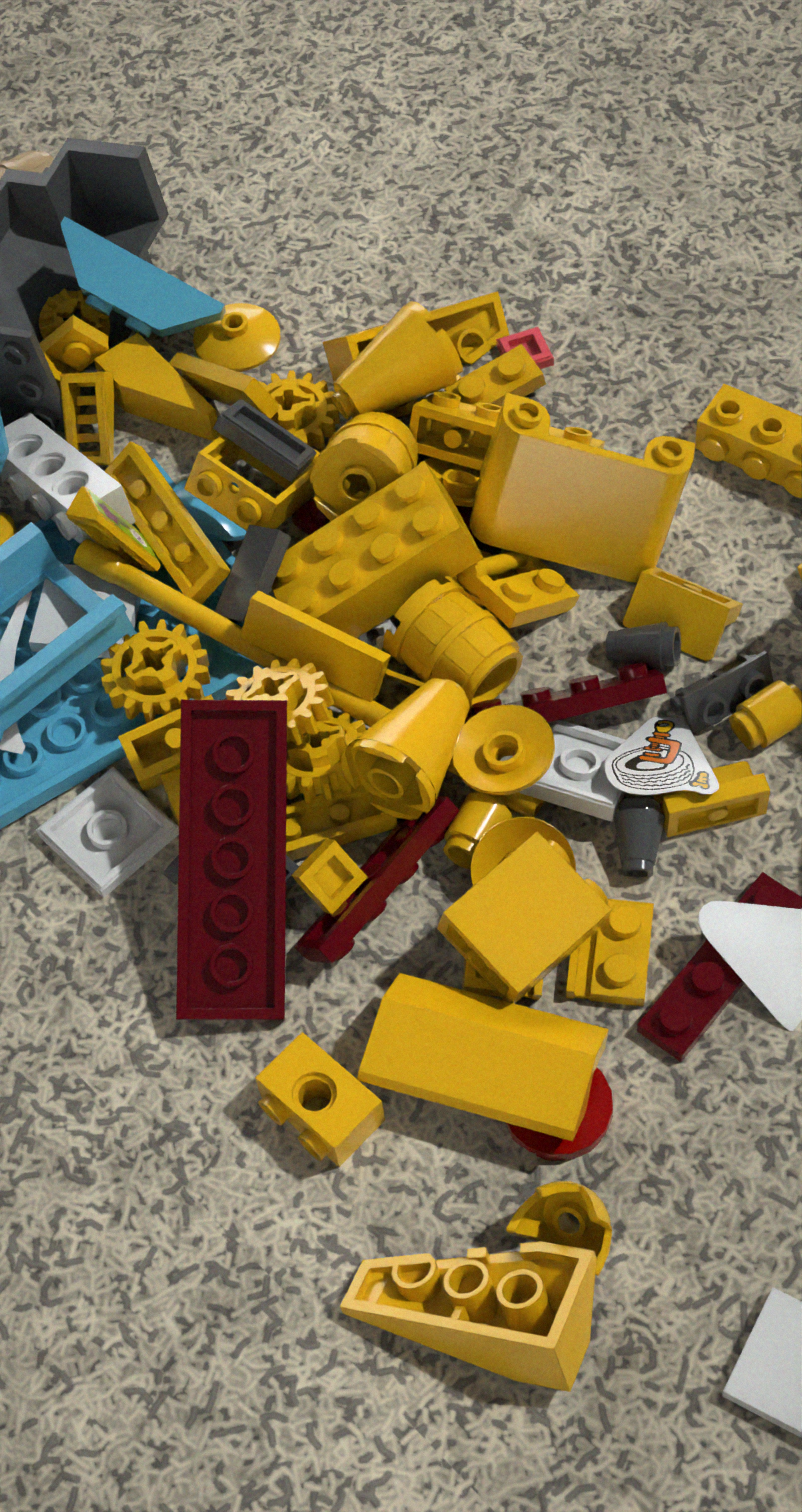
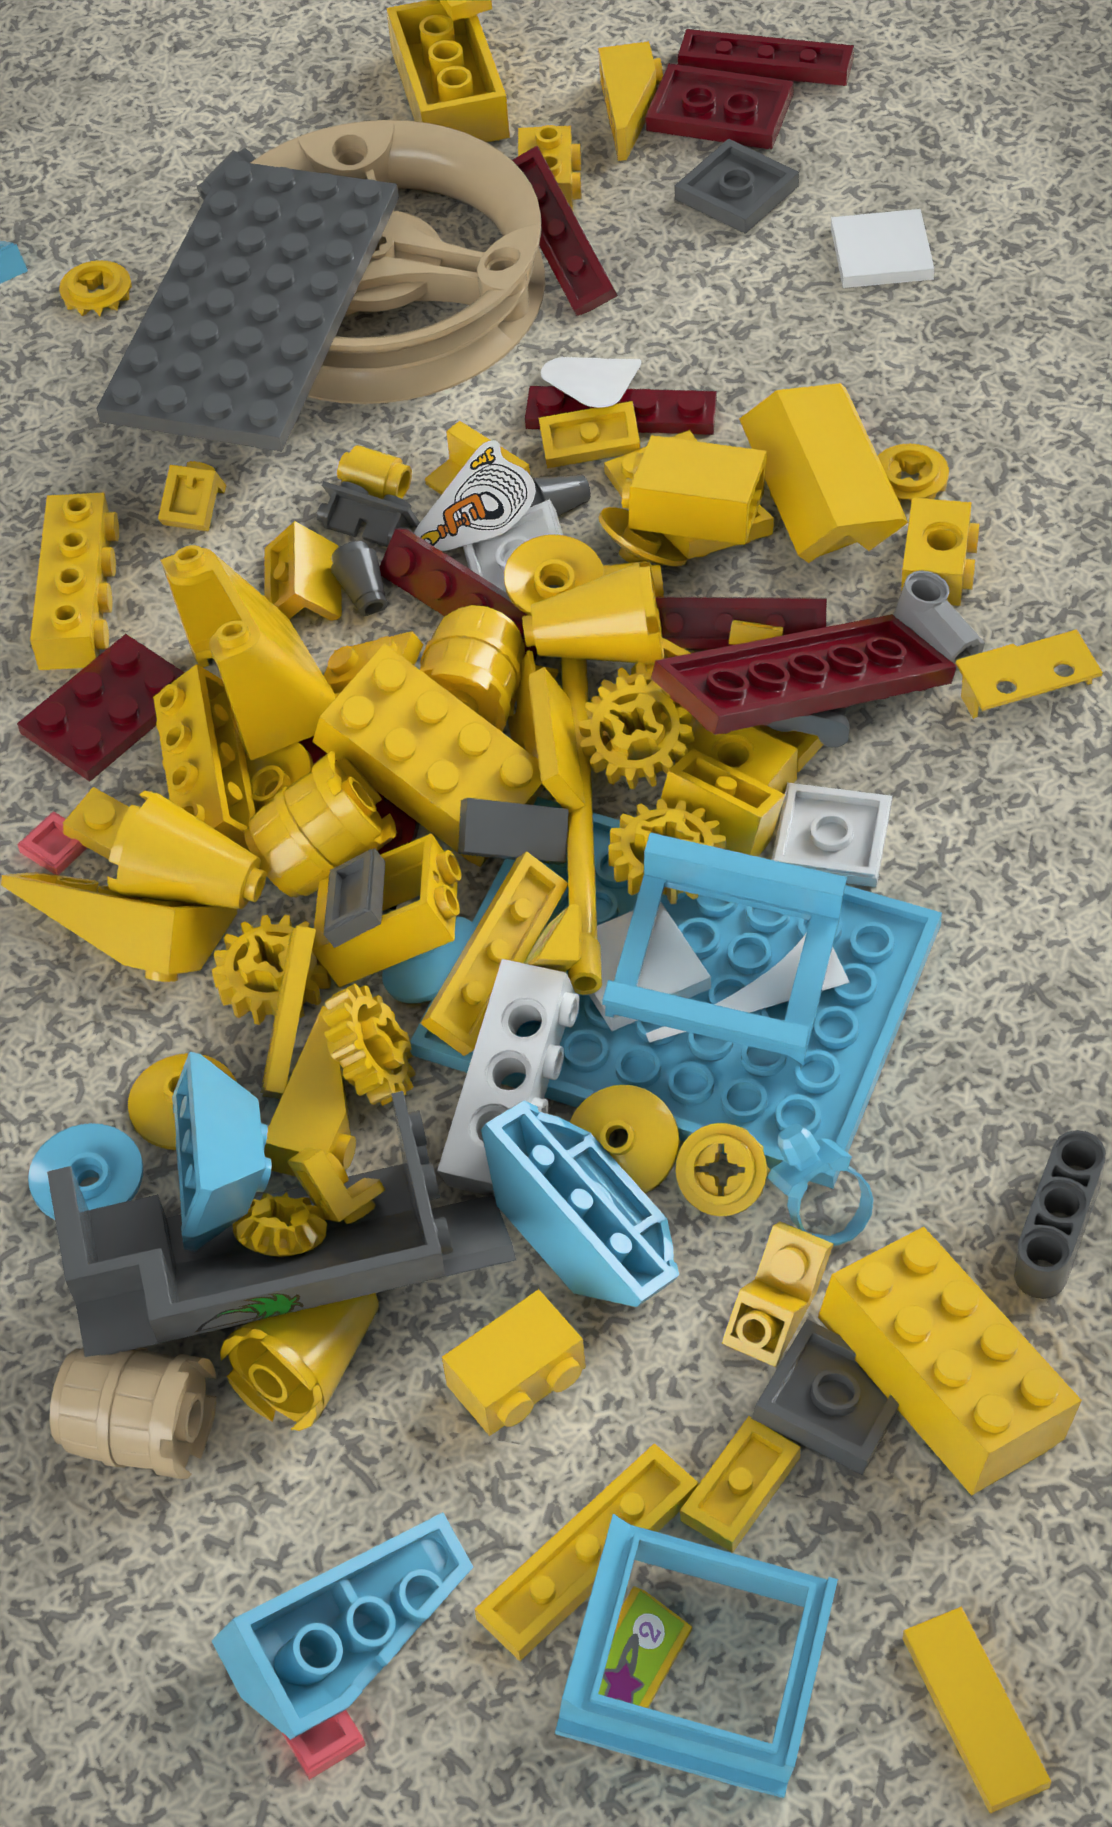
camera: 125 degrees left, 5 degrees down
(104, 402) = (371, 1127): yellow slope -> none
(119, 1070) = (1027, 667): none -> yellow piece
(159, 416) = (368, 1044): none -> yellow gear
(214, 255) = (91, 1152): none -> medium azure dish
(233, 1040) = (929, 614): none -> light grey piece
(427, 1140) = (915, 459): none -> yellow gear
(500, 1311) = (992, 384): yellow wedge -> none
(546, 1219) = (893, 375): yellow piece -> none
(633, 412) = (101, 708): none -> dark red plate
(677, 924) = (589, 434): none -> yellow plate

